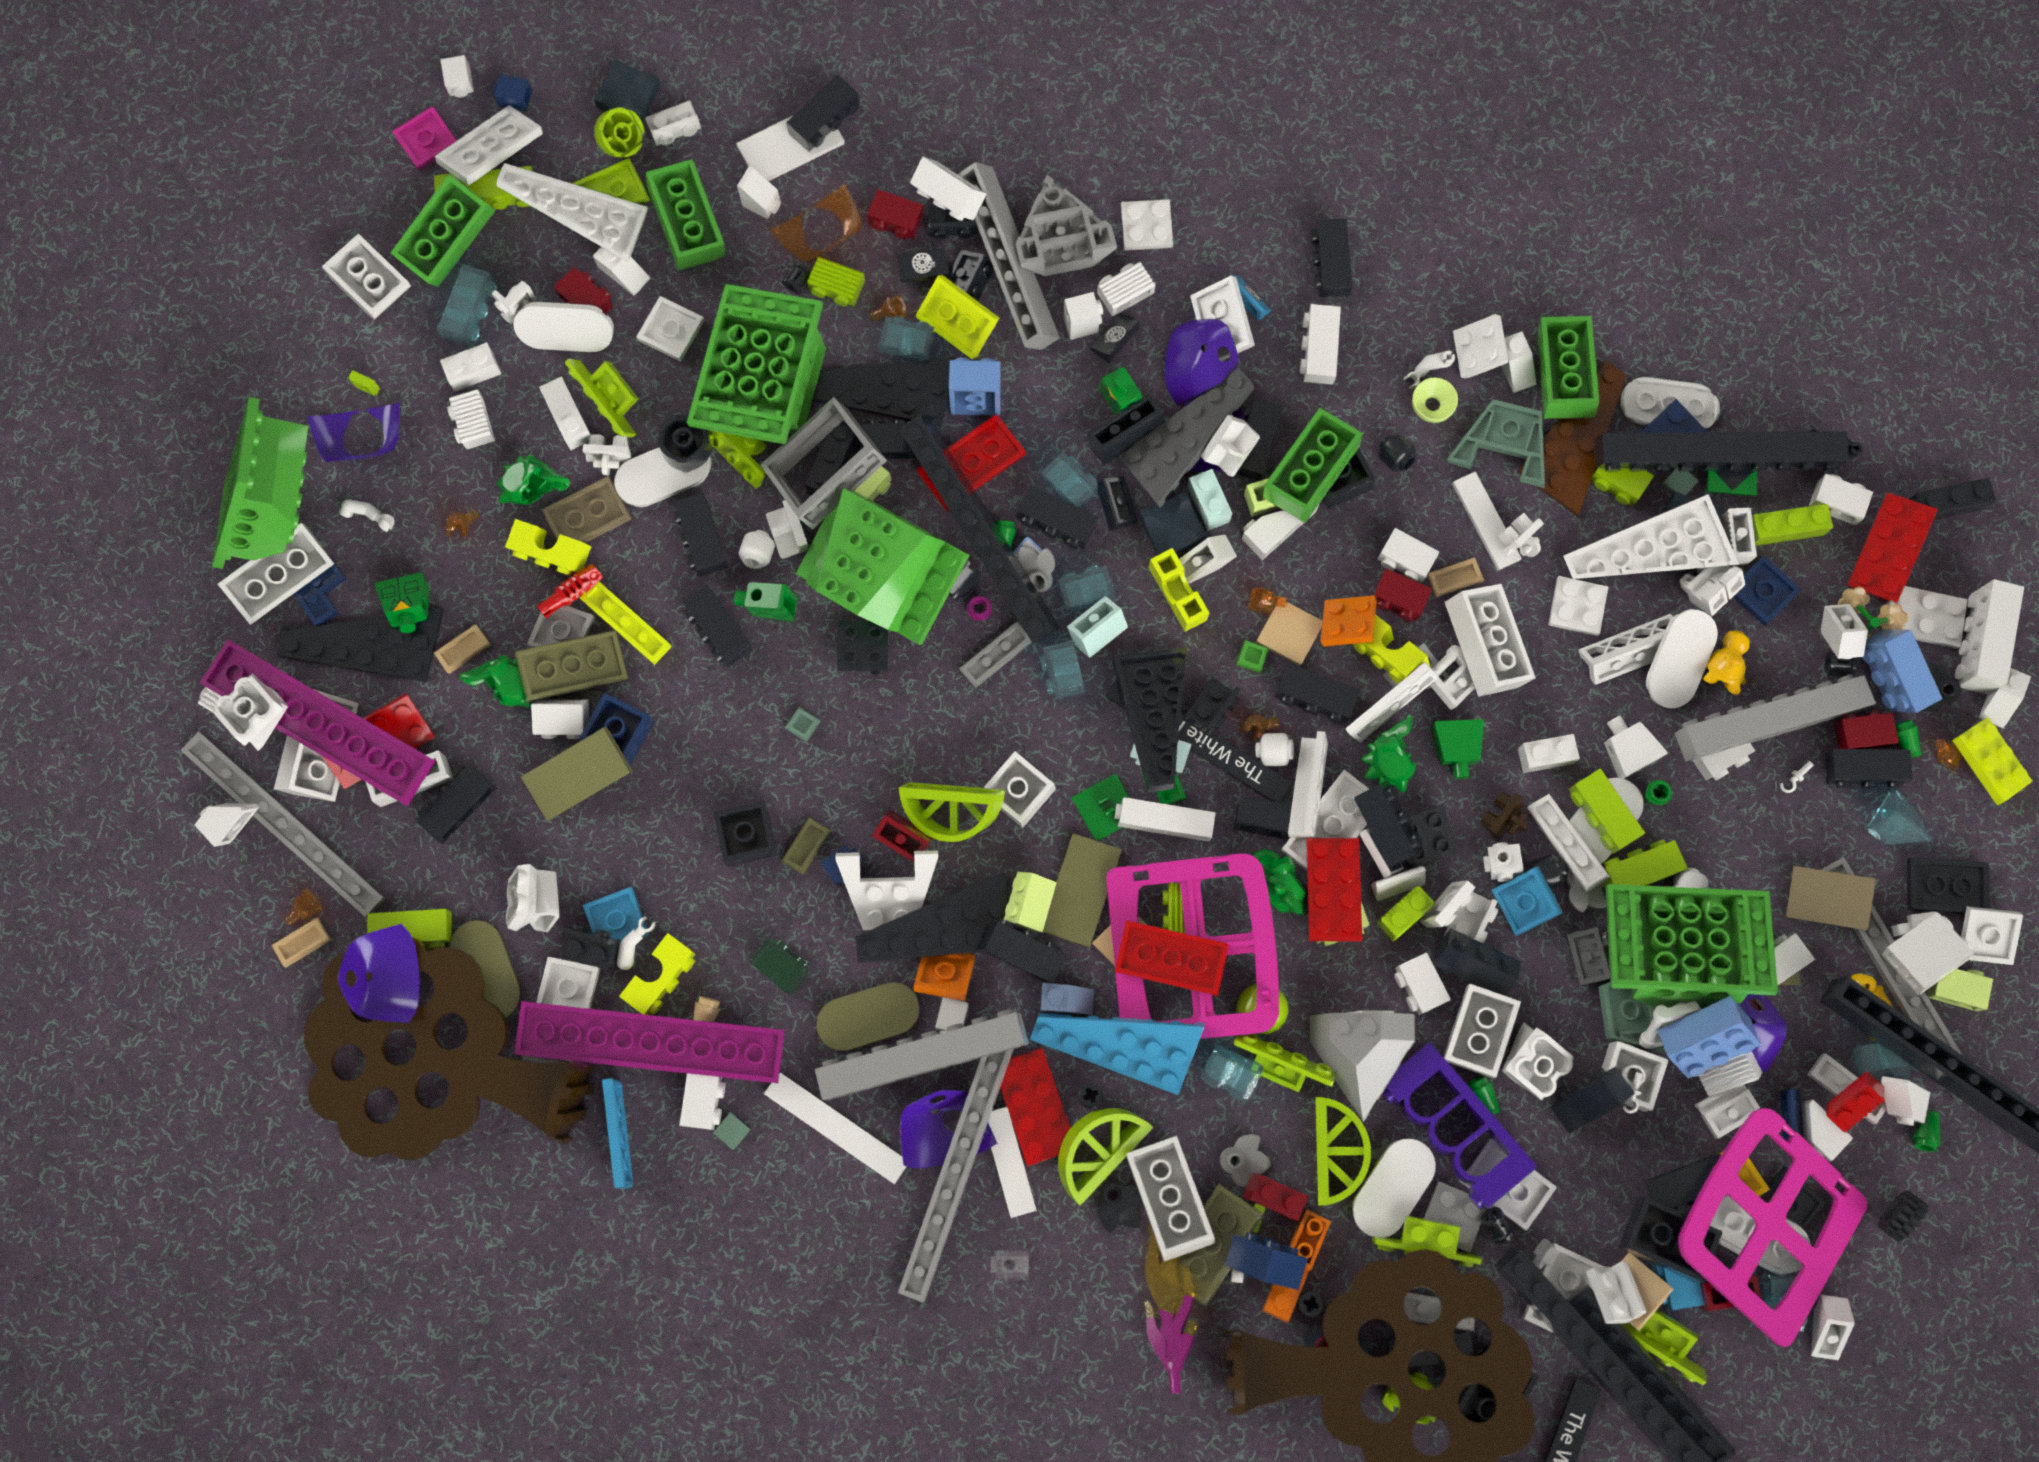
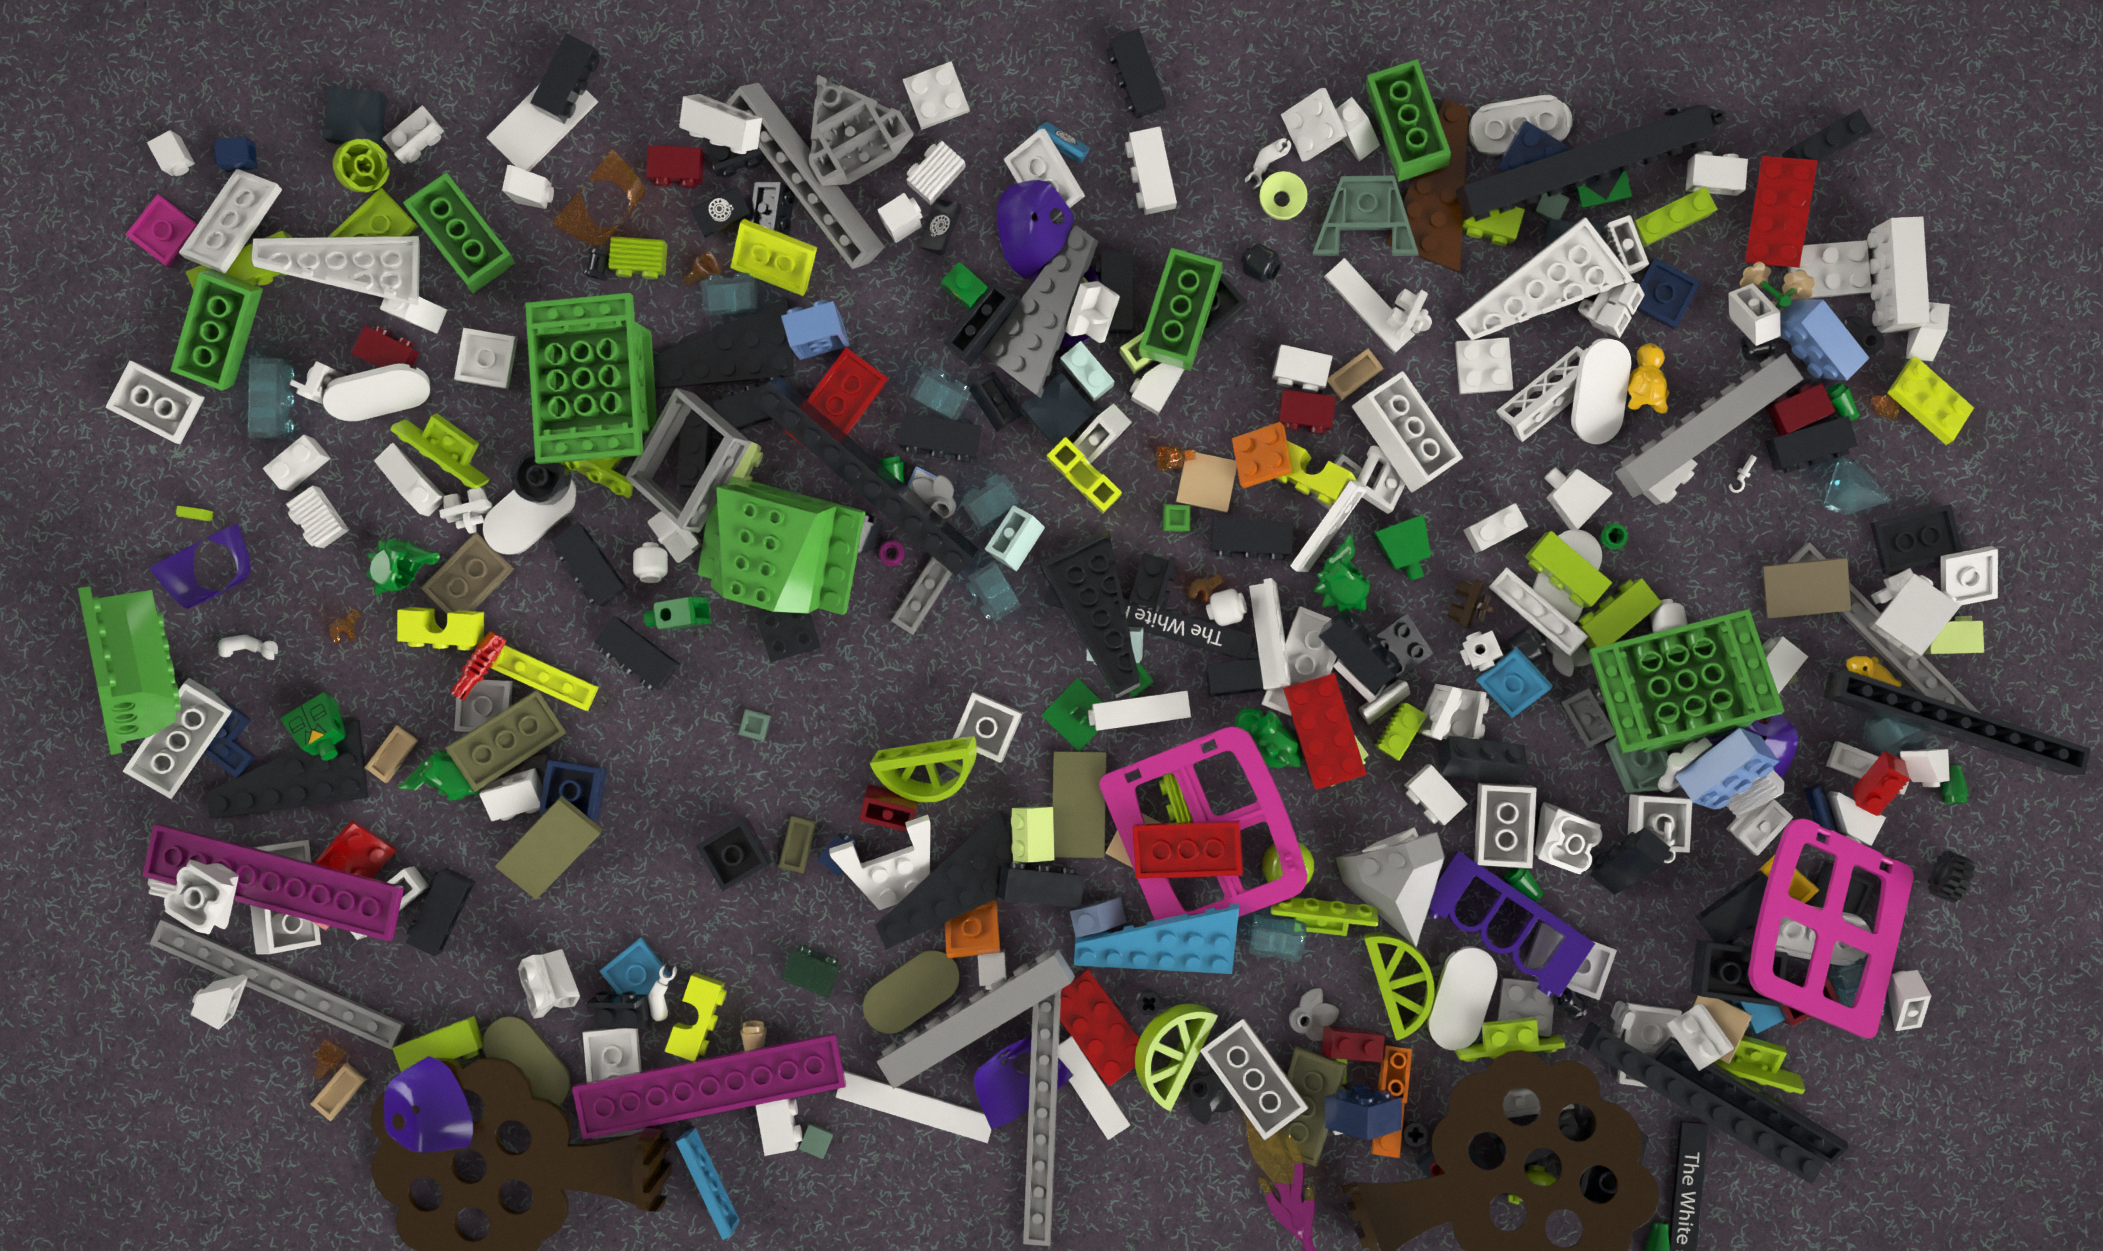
camera: 15 degrees left, 10 degrees up
(1020, 1258) = (1124, 1174): clear brick -> none

